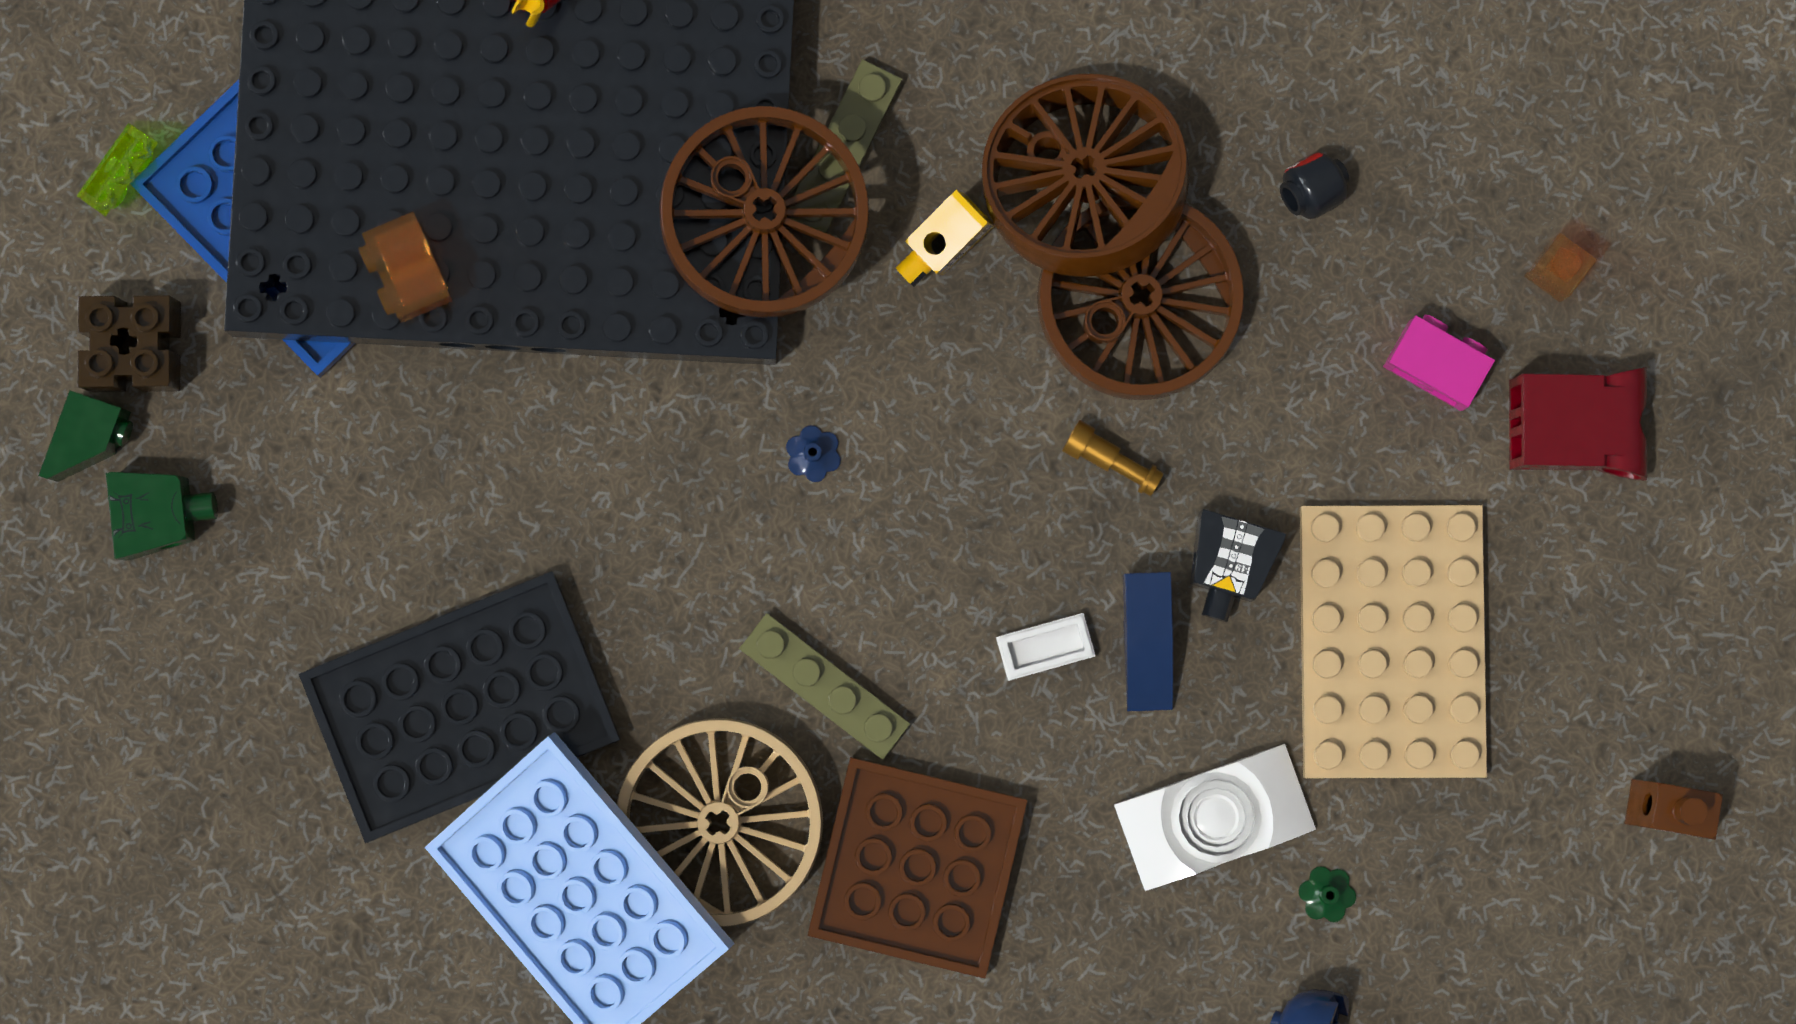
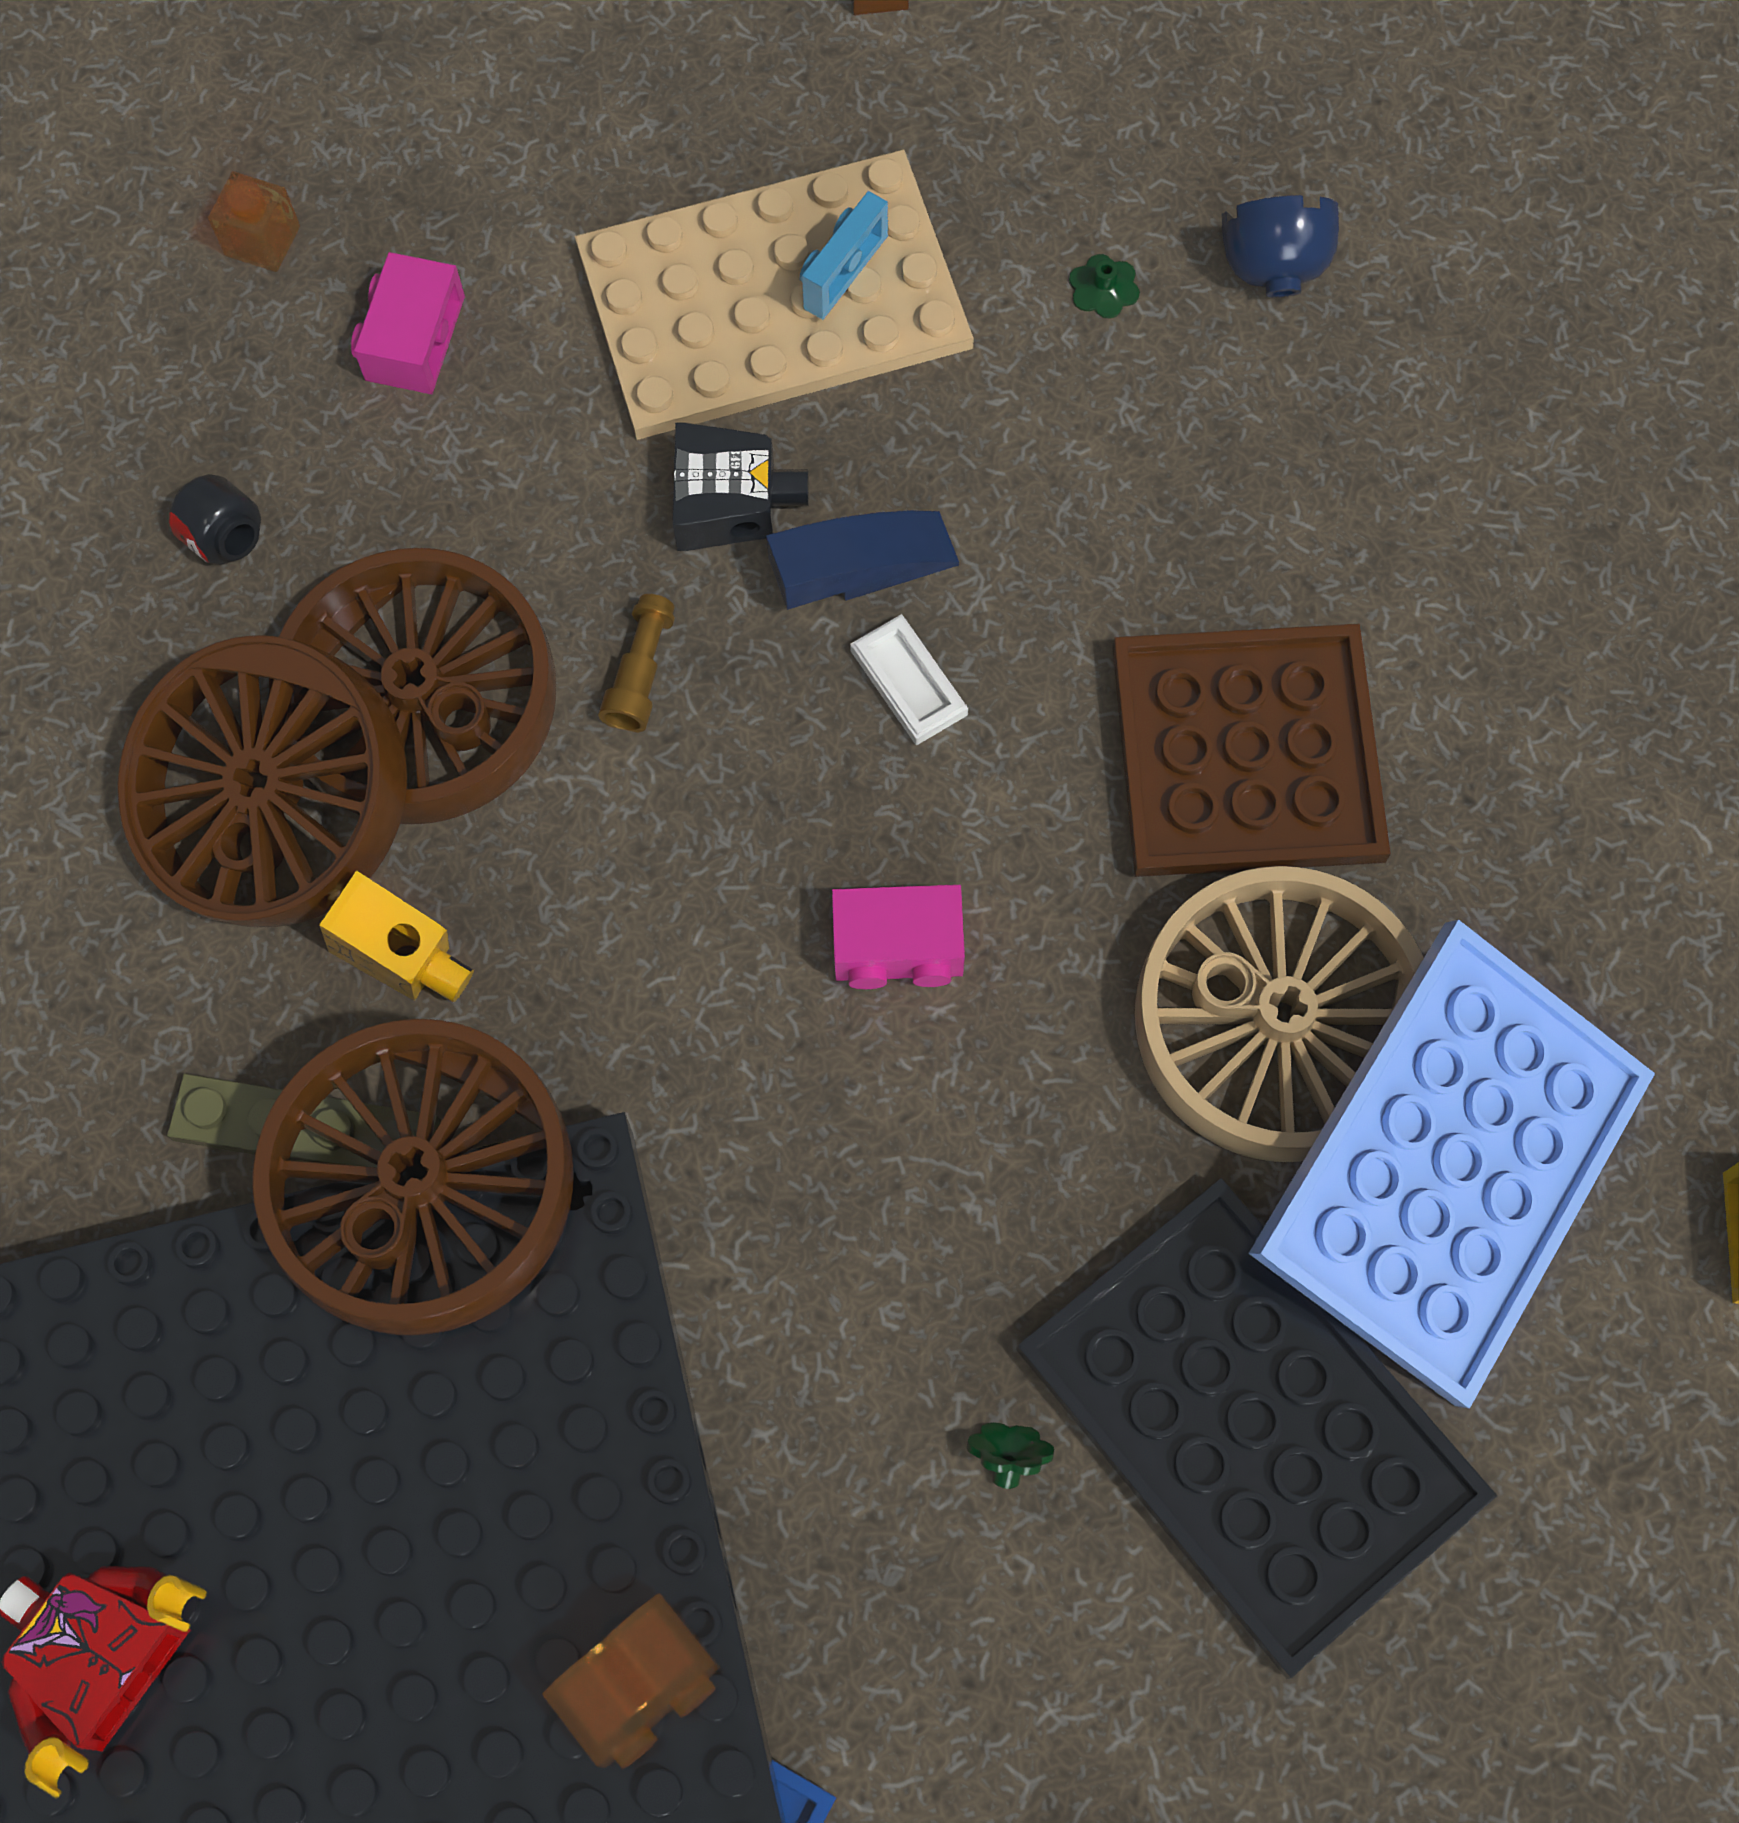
camera: 105 degrees left, 15 degrees down
(489, 546) = (1010, 1452): none -> dark green plant
(813, 466) = (742, 1059): dark blue plant -> none
(824, 686) = (1052, 937): olive plate -> none
(852, 578) = (898, 935): none -> dark pink brick
(1215, 817) = (1059, 429): white slope -> none
(1379, 681) = (853, 243): none -> dark azure plate
(1579, 423) = (443, 157): dark red piece -> none

